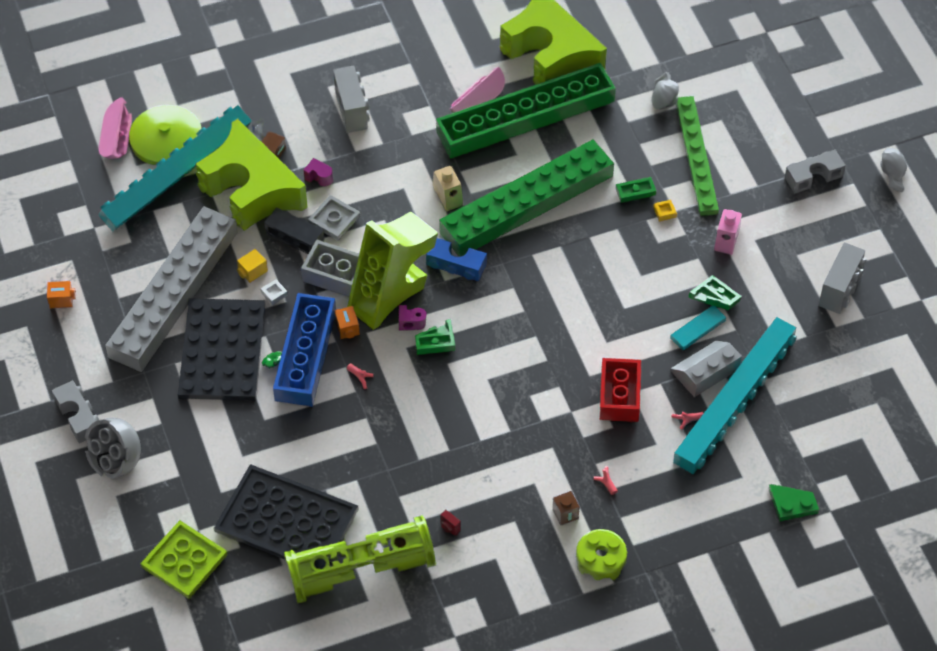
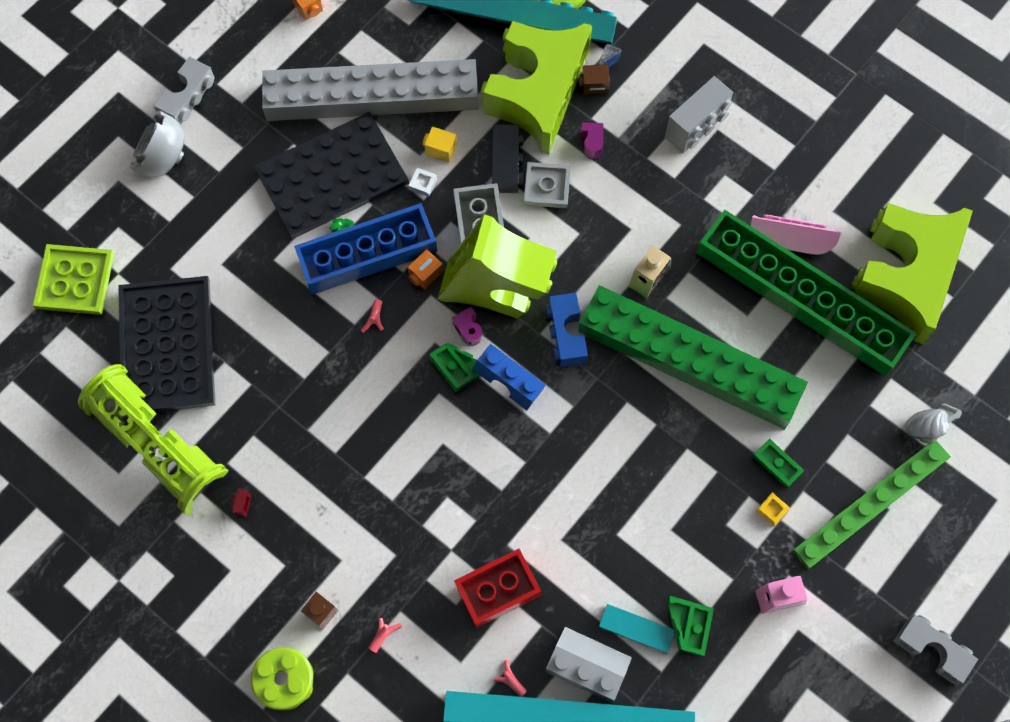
camera: 60 degrees right, 15 degrees up
(456, 309) = (497, 366): none -> blue arch

